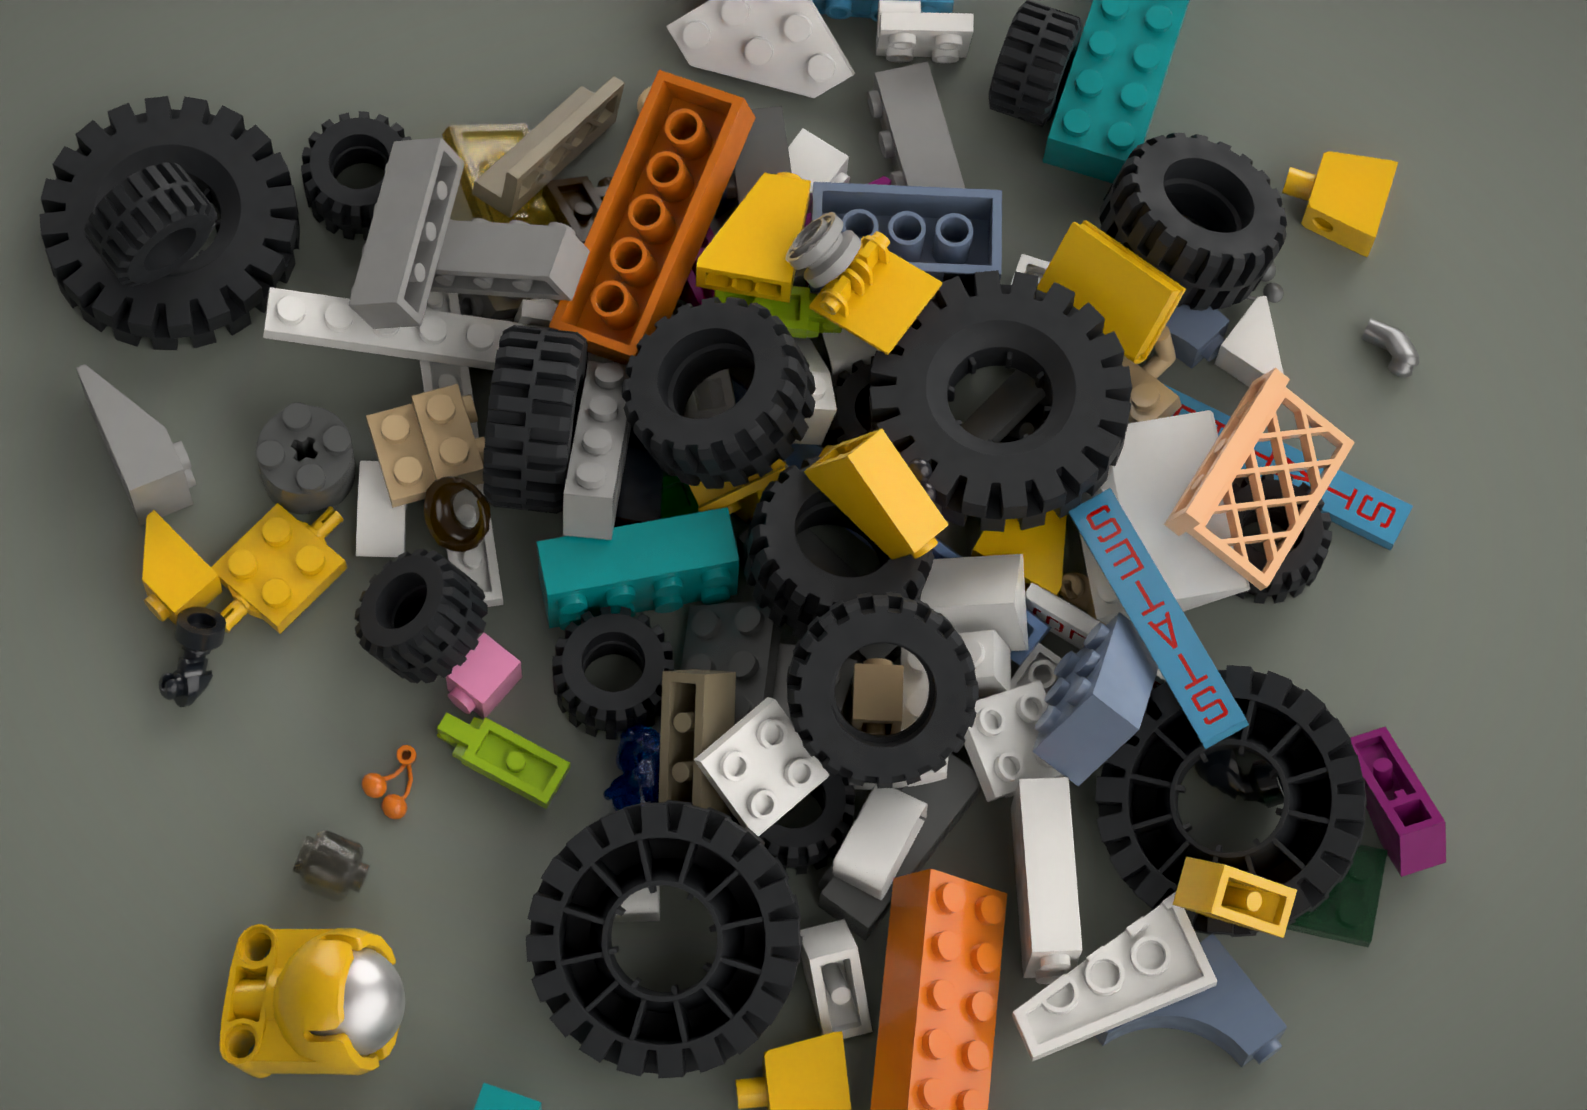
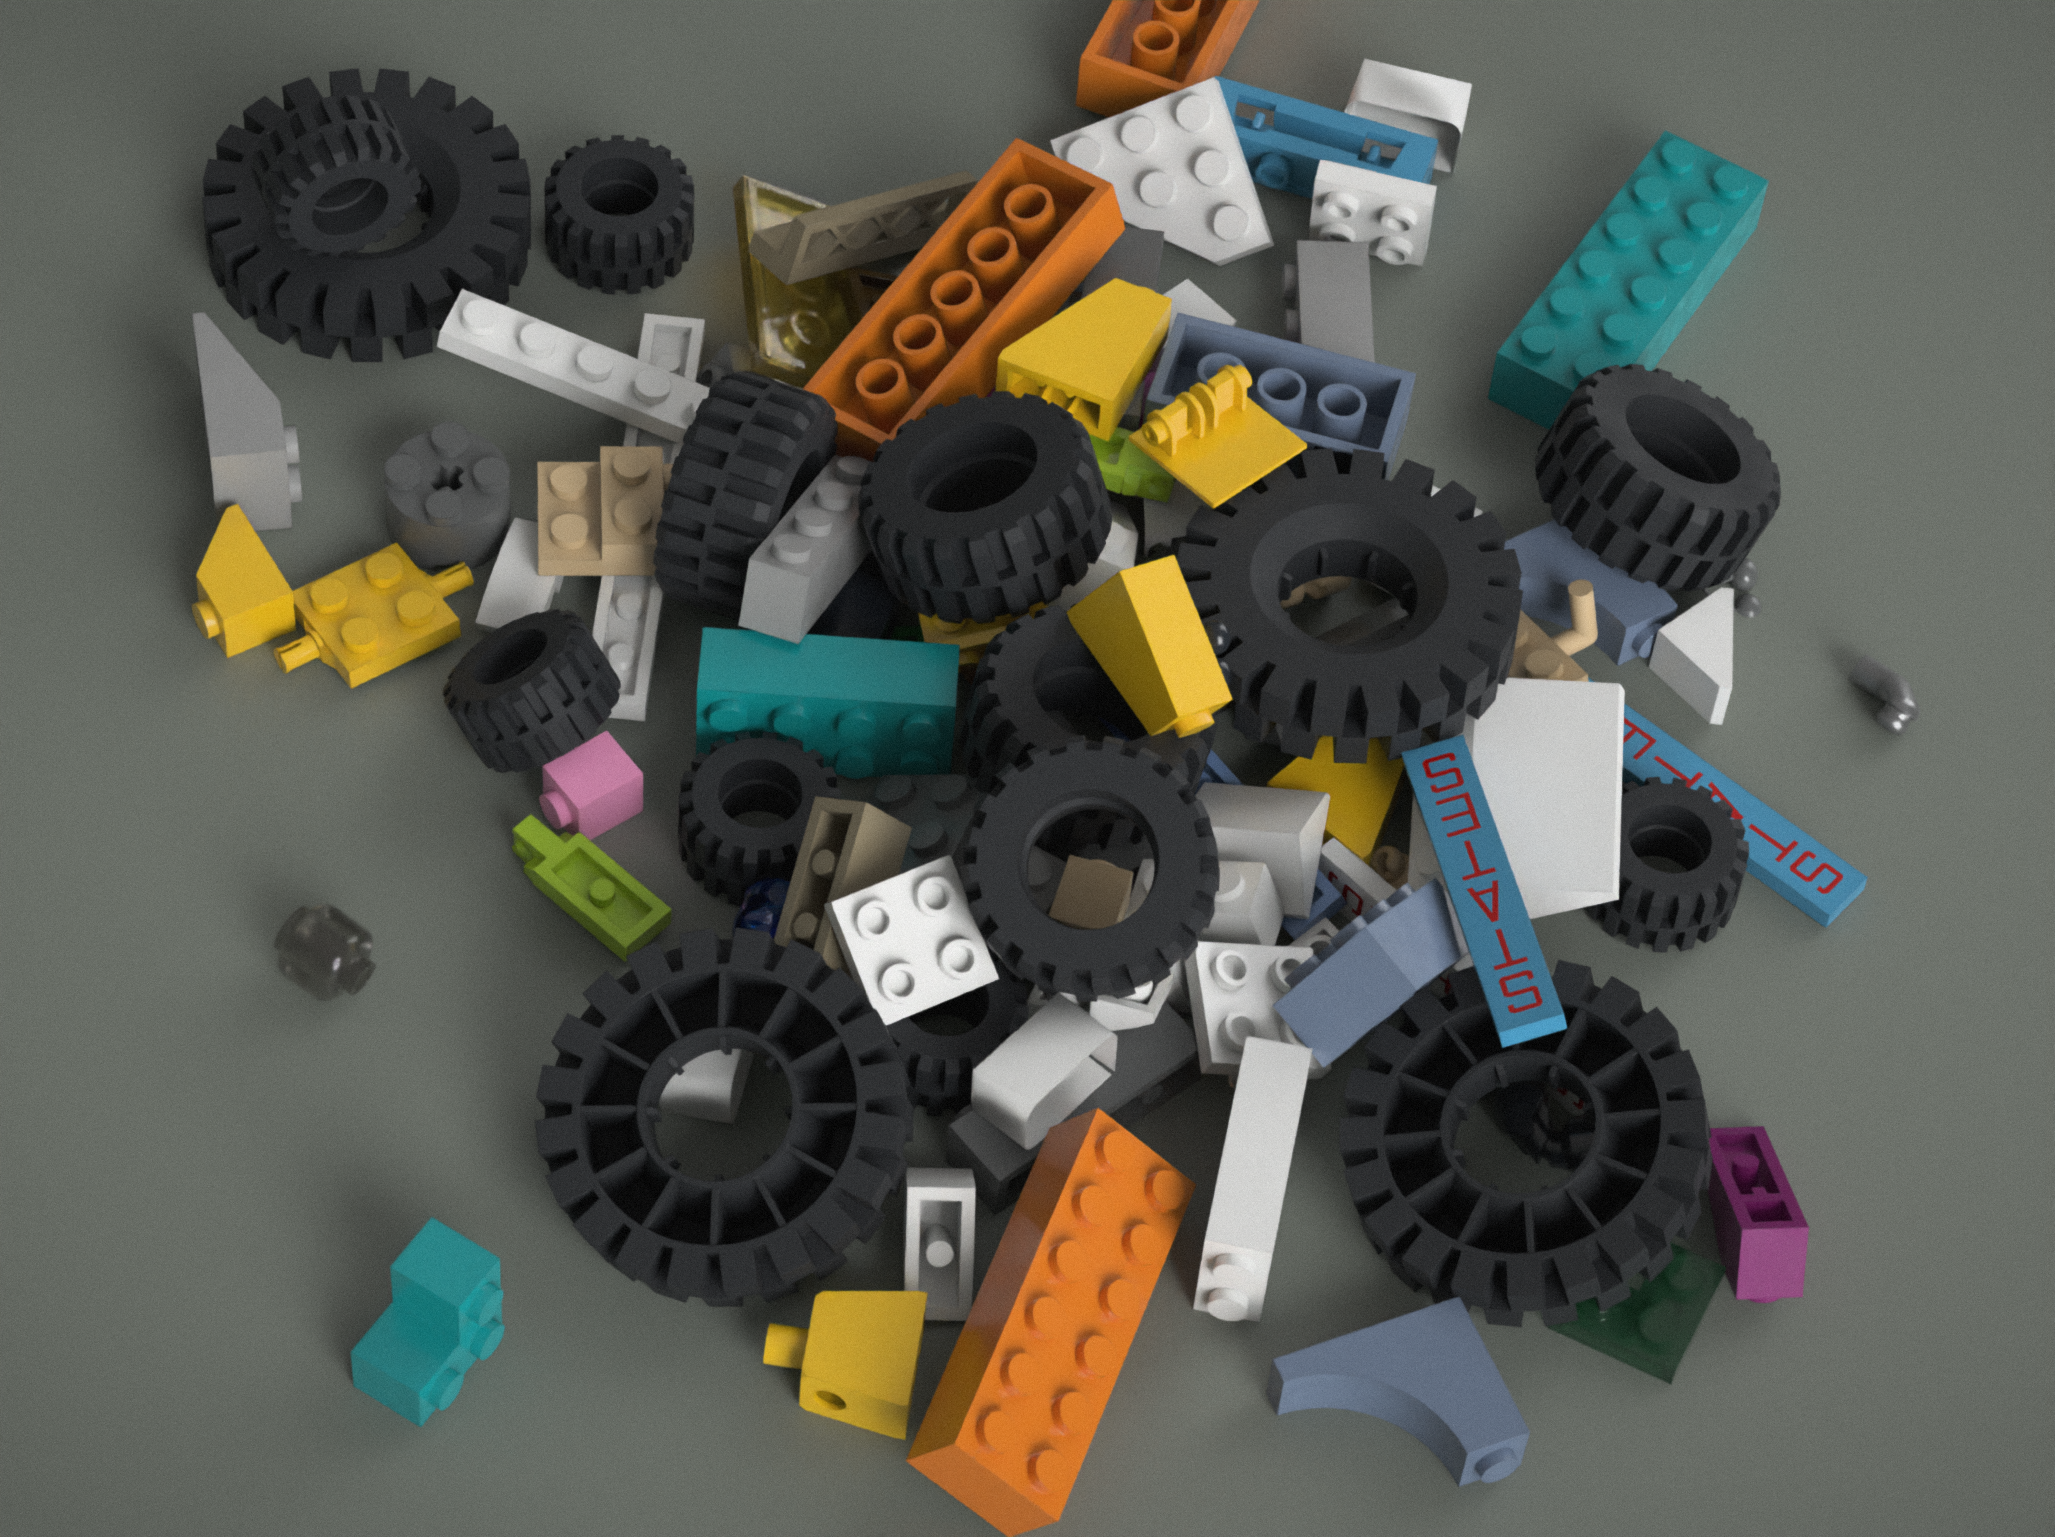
camera: 15 degrees right, 15 degrees down
(199, 633) = (248, 658): black arm -> none
(312, 1003) = (246, 1092): yellow piece -> none
(375, 785) = (414, 885): orange piece -> none
(406, 233) = (649, 261): light grey brick -> none
(442, 520) = (597, 583): dark brown piece -> none
(510, 260) = (748, 312): light grey brick -> none
(823, 250) = (1163, 366): light grey wheel -> none
(1034, 63) = (1500, 265): black tyre -> none
(1118, 284) = (1546, 519): yellow piece -> none
(1129, 977) = (1338, 1312): white wing -> none
(1224, 464) = (1622, 740): light nougat fence -> none
(1234, 896) = (1496, 1237): yellow slope -> none
(1344, 197) = (1868, 513): yellow torso -> none

